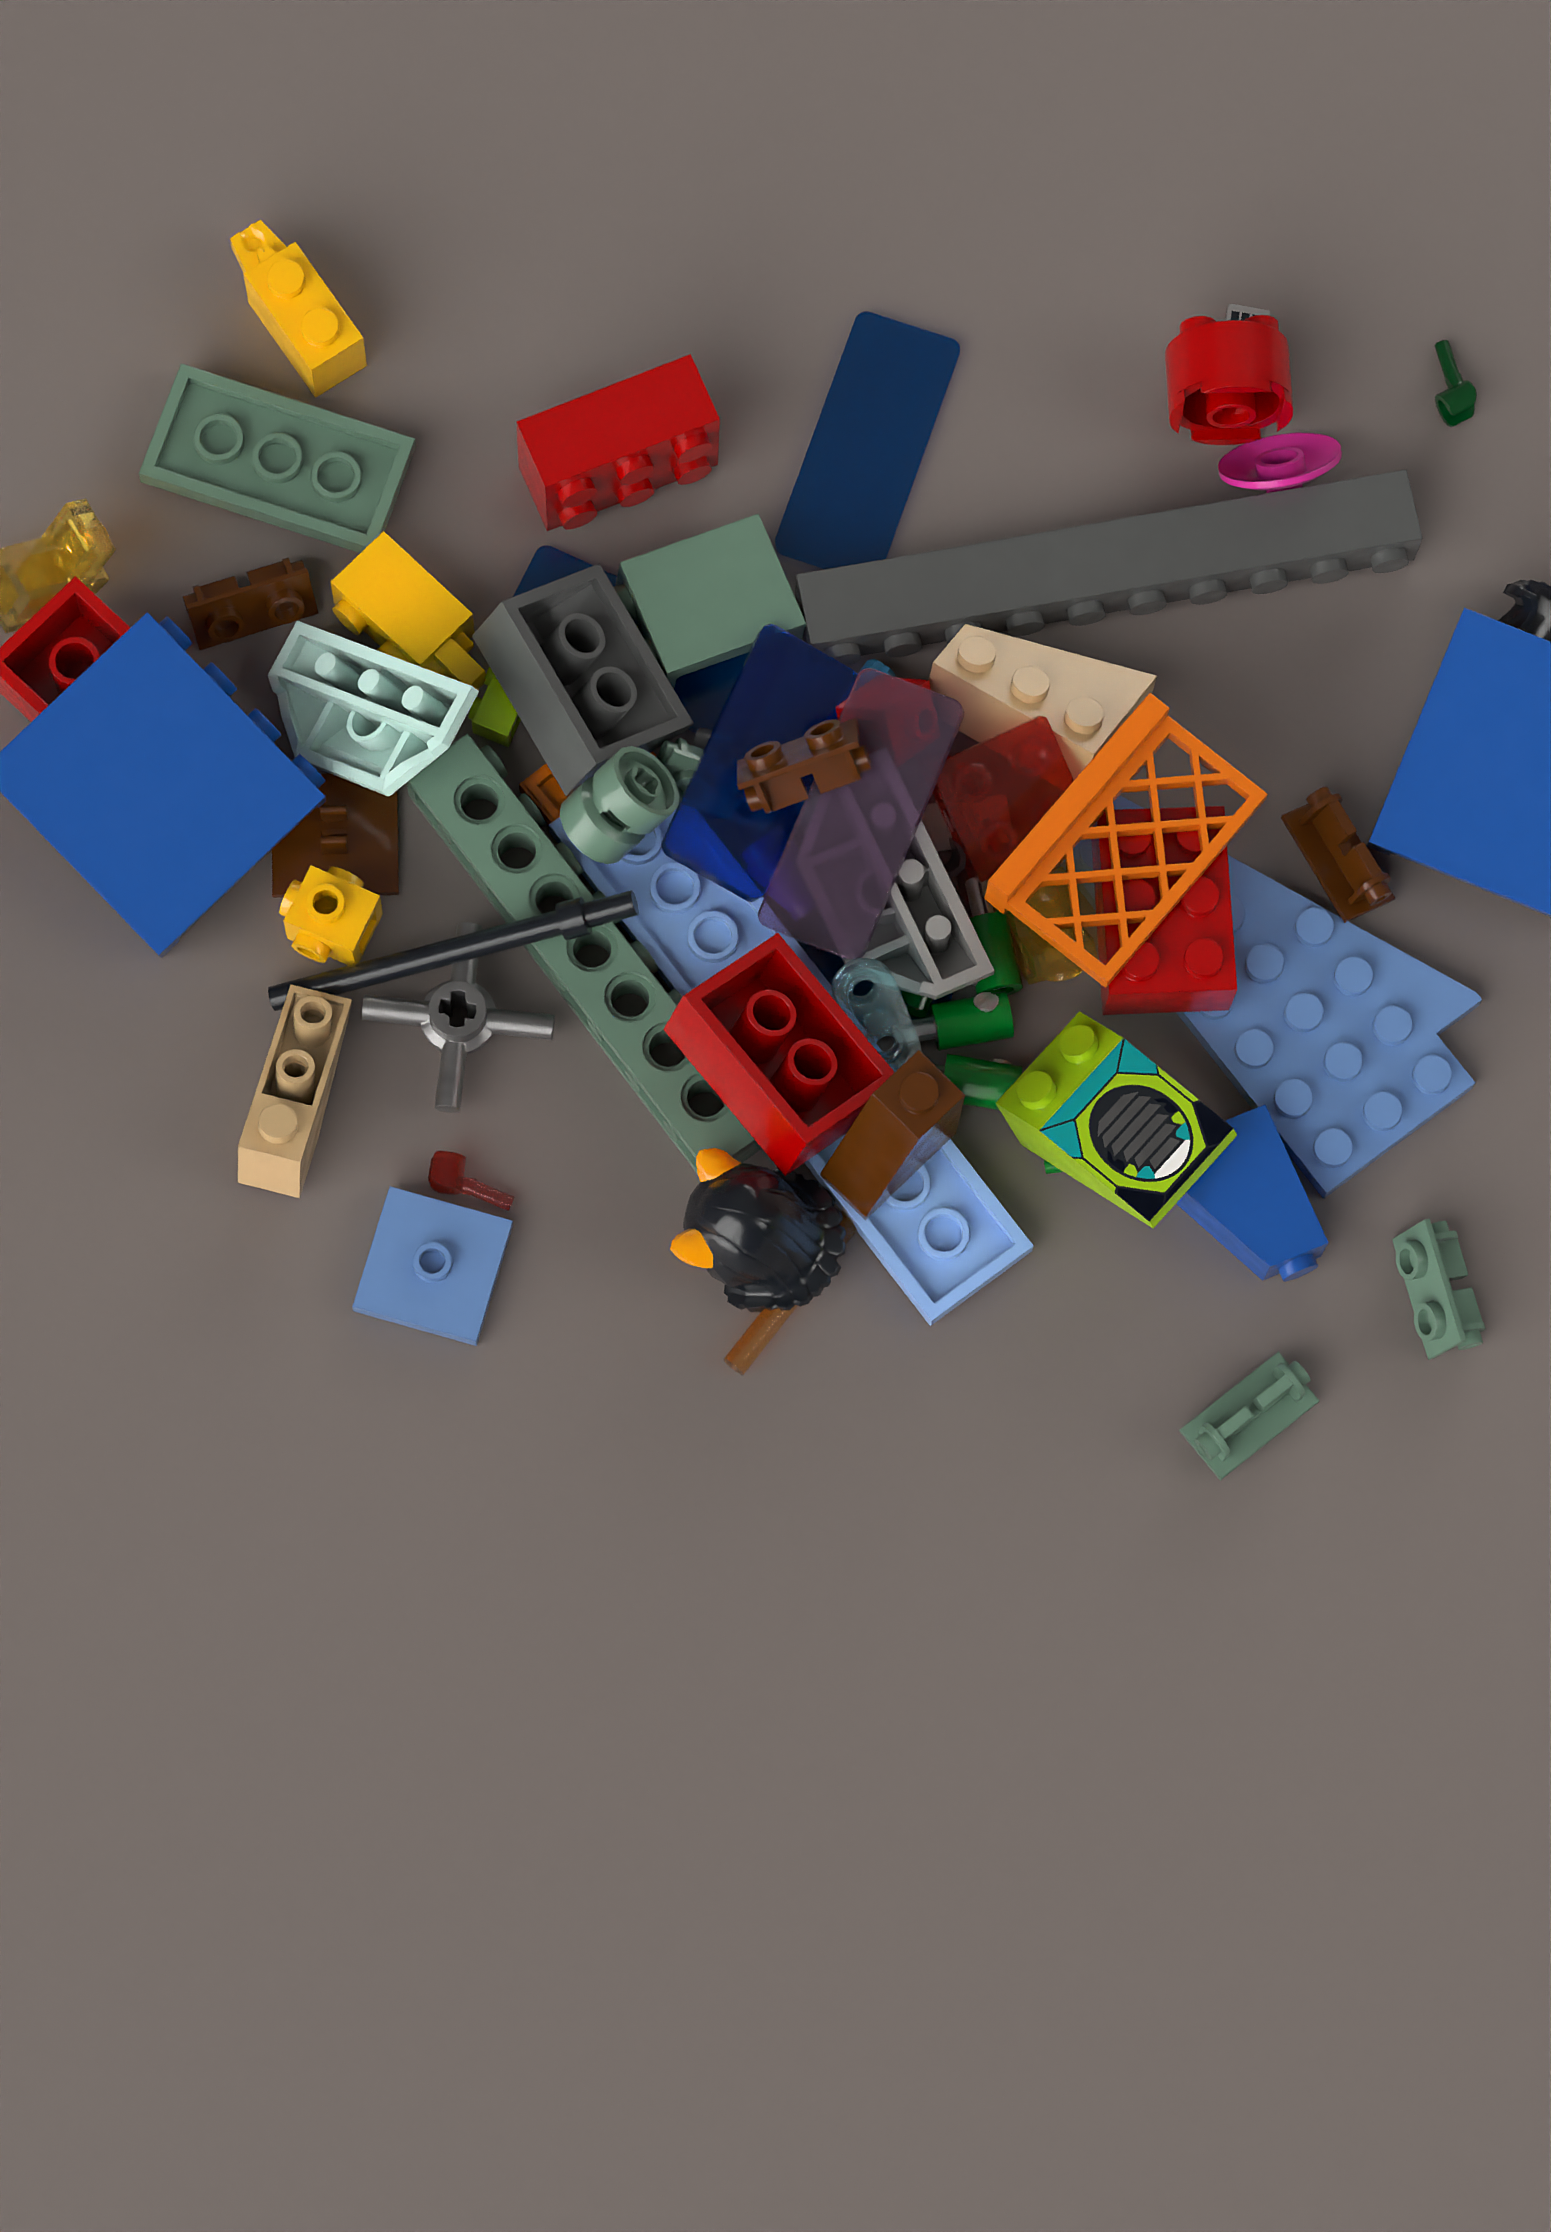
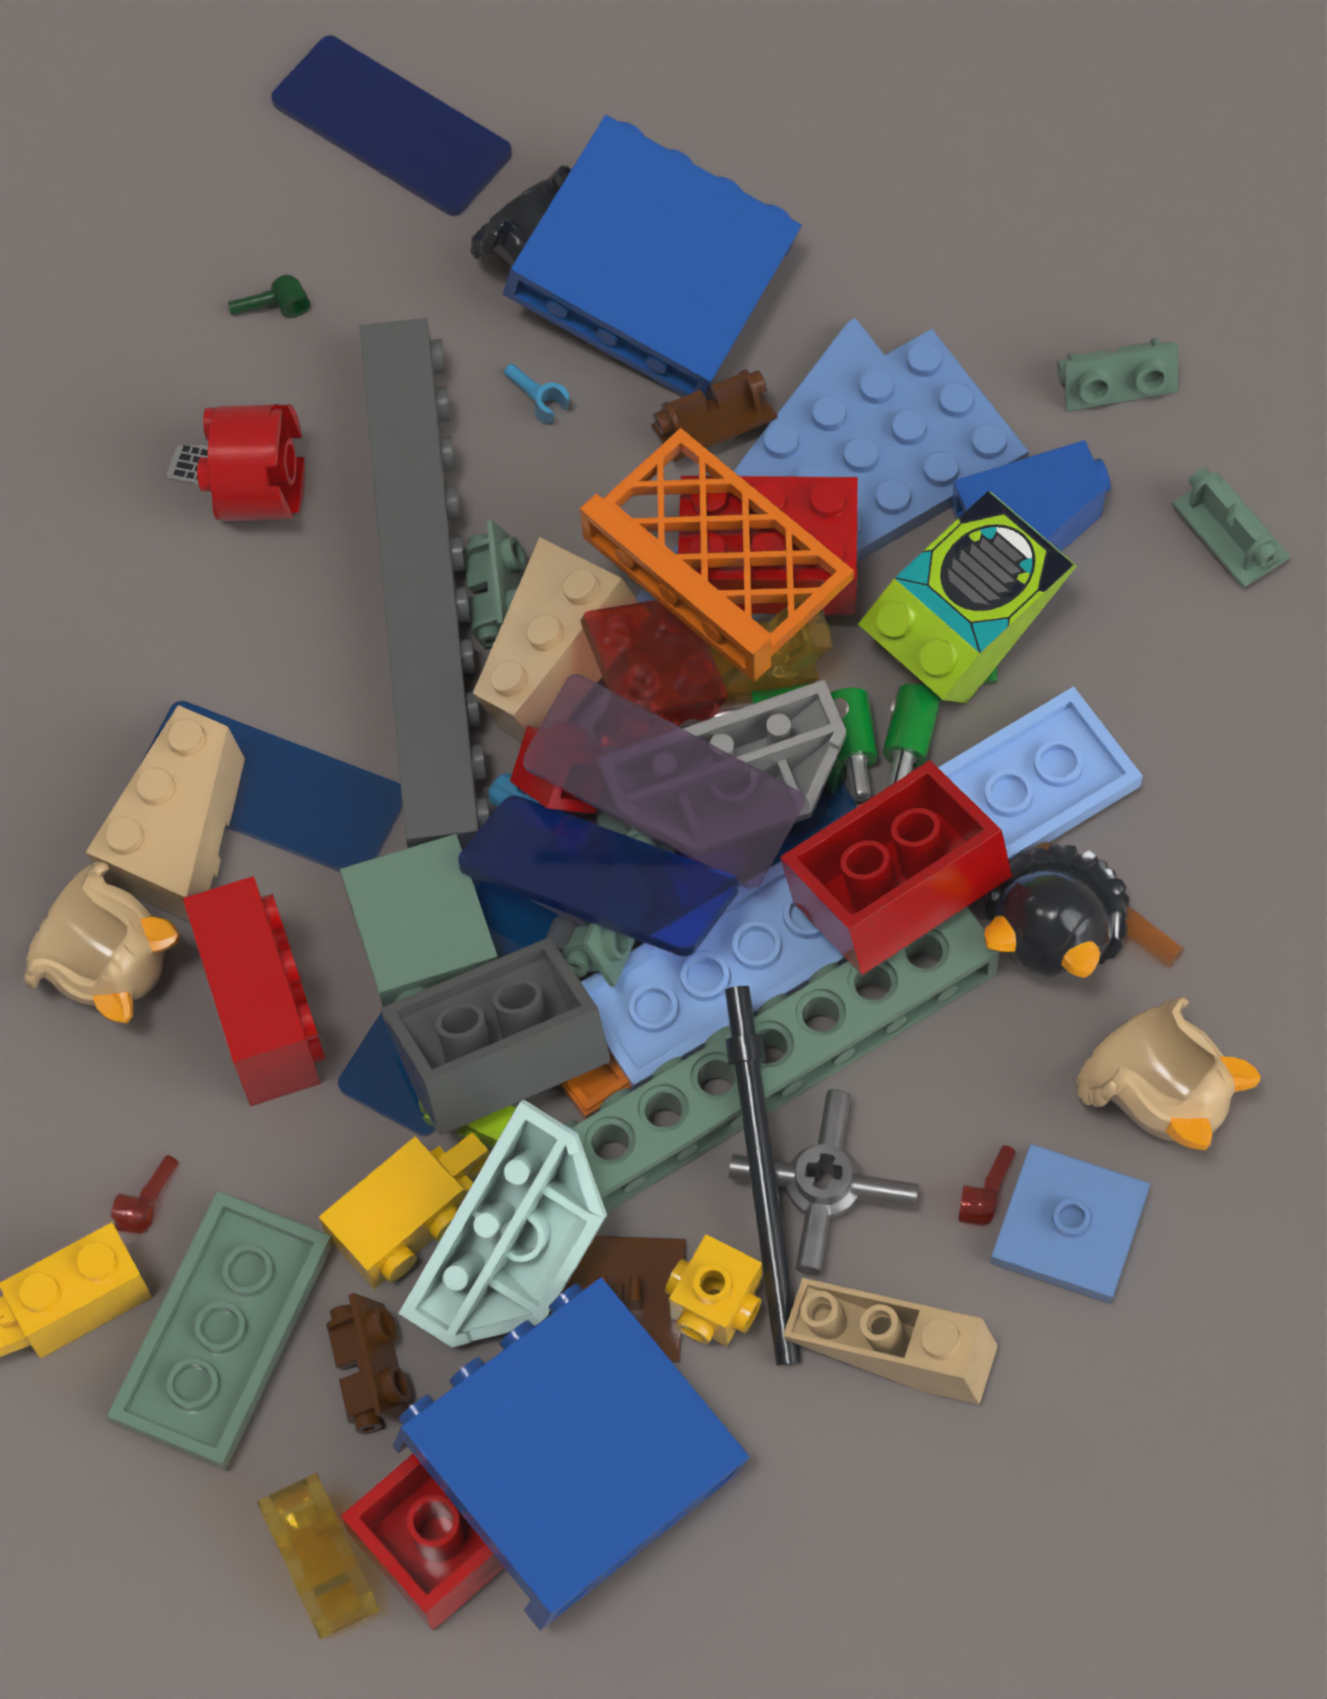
camera: 75 degrees left, 10 degrees down
(396, 373) = (136, 1213): none -> clear red hand
(583, 1346) = (1165, 1076): none -> tan hair
(619, 805) = (635, 998): sand green wheel -> none
(660, 294) = (100, 946): none -> tan hair
(774, 771) = (607, 797): reddish brown hinge -> none
(813, 350) = (173, 814): none -> tan wedge
(878, 1012) = (851, 780): clear light blue plate -> none
(894, 1134) = (984, 759): reddish brown slope -> none
(1139, 642) = (496, 564): none -> sand green hinge
(1280, 461) = (335, 430): dark pink dish -> none
(1362, 669) = (539, 393): none -> dark azure hand

